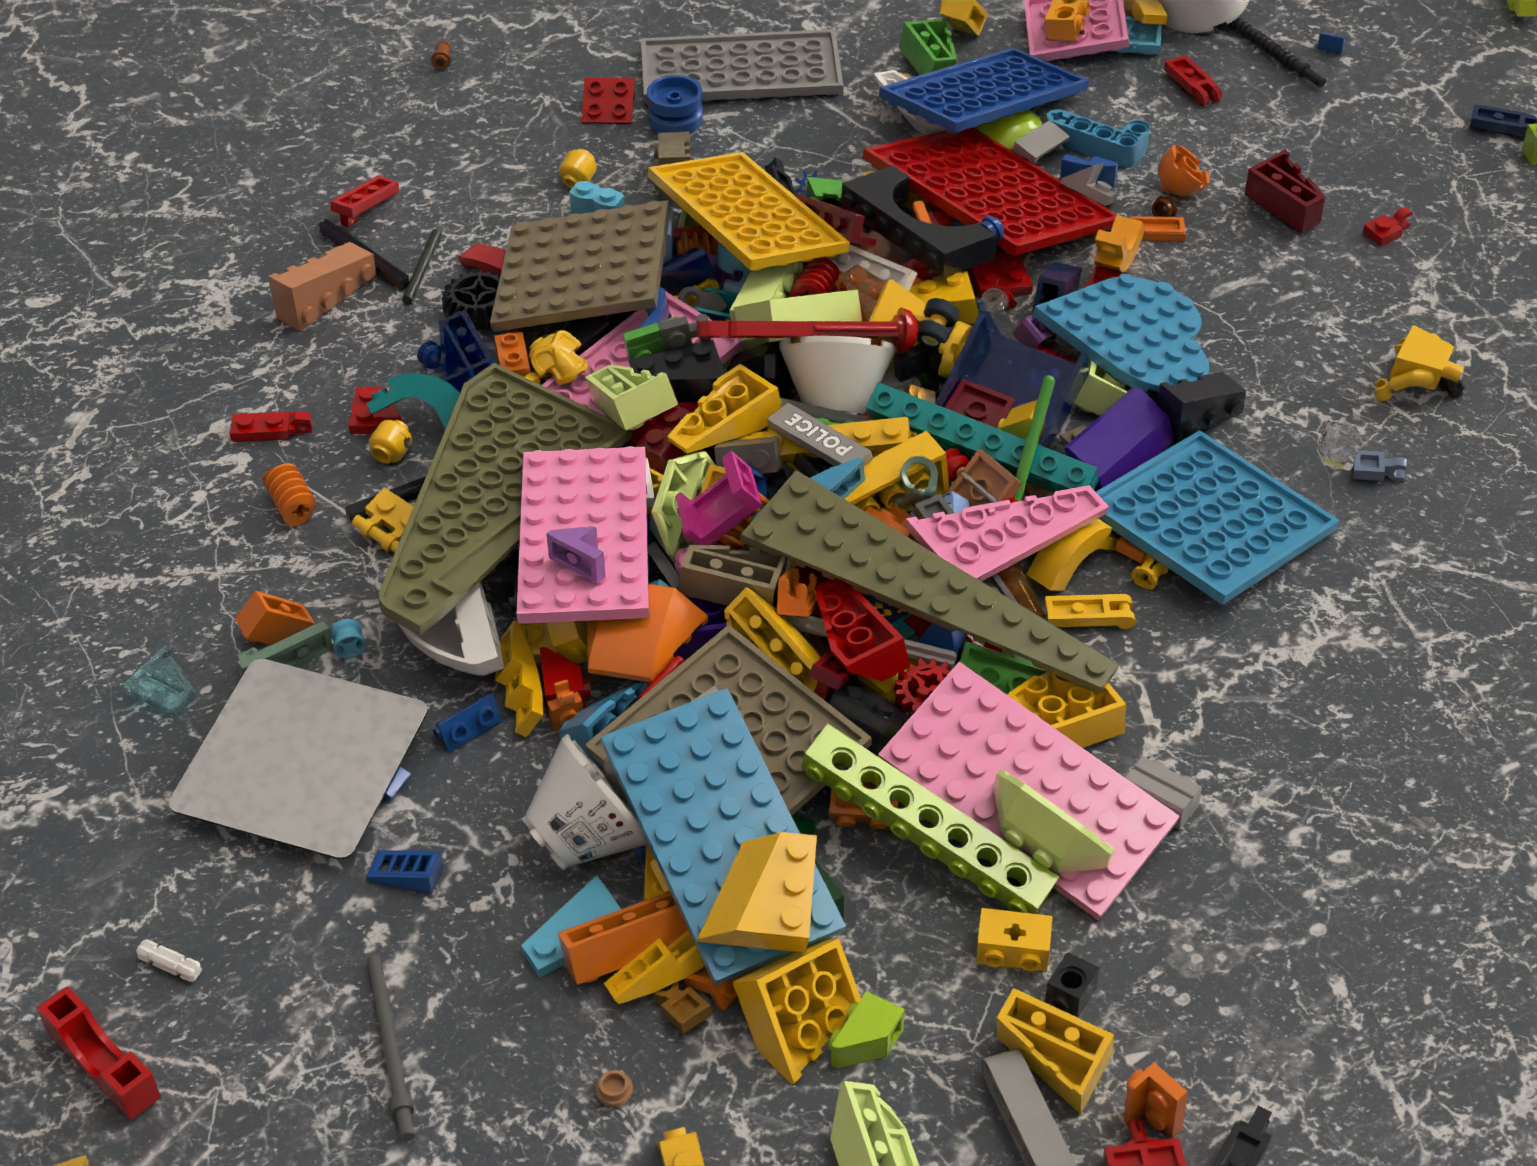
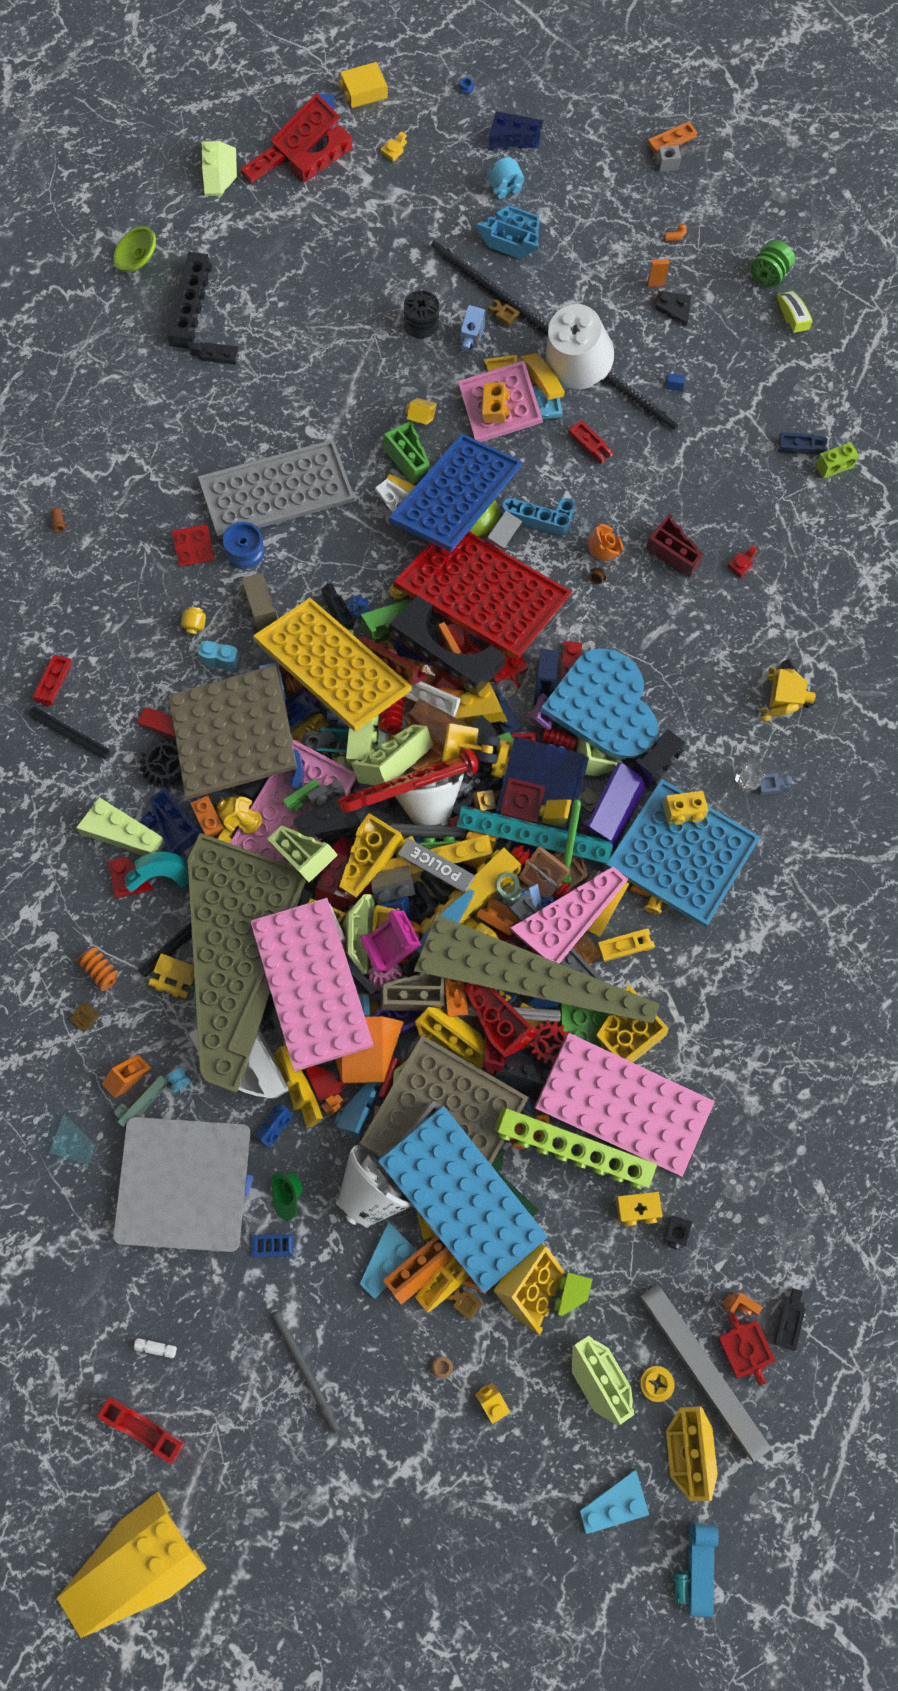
camera: 20 degrees left, 25 degrees up
(246, 548) = (84, 1016): none -> pearl gold slope
(269, 425) = (60, 907): red hinge -> none
(320, 284) = (53, 773): nougat wedge -> none
(379, 350) = (116, 828): none -> yellowish green wedge
(390, 441) = (149, 906): yellow head -> none
(421, 267) = (113, 736): pearl dark grey bar -> none
(452, 802) = (285, 1193): none -> green piece
(577, 551) = (315, 1014): medium lavender slope -> none
(766, 895) = (502, 1240): yellow wedge -> none
(994, 225) = (500, 645): blue plate -> none
(1046, 830) = (643, 1139): yellowish green wedge -> none
(1056, 1046) = (680, 1279): yellow wedge -> none
(1072, 164) = (548, 550): blue slope -> none
(1085, 183) = (540, 564): light grey slope -> none
(1119, 247) = (577, 623): light orange arch -> none
(1162, 228) = (596, 593): orange tile -> none
(1174, 791) = (698, 1078): light grey brick -> none
(1226, 458) = (685, 807): none -> yellow brick

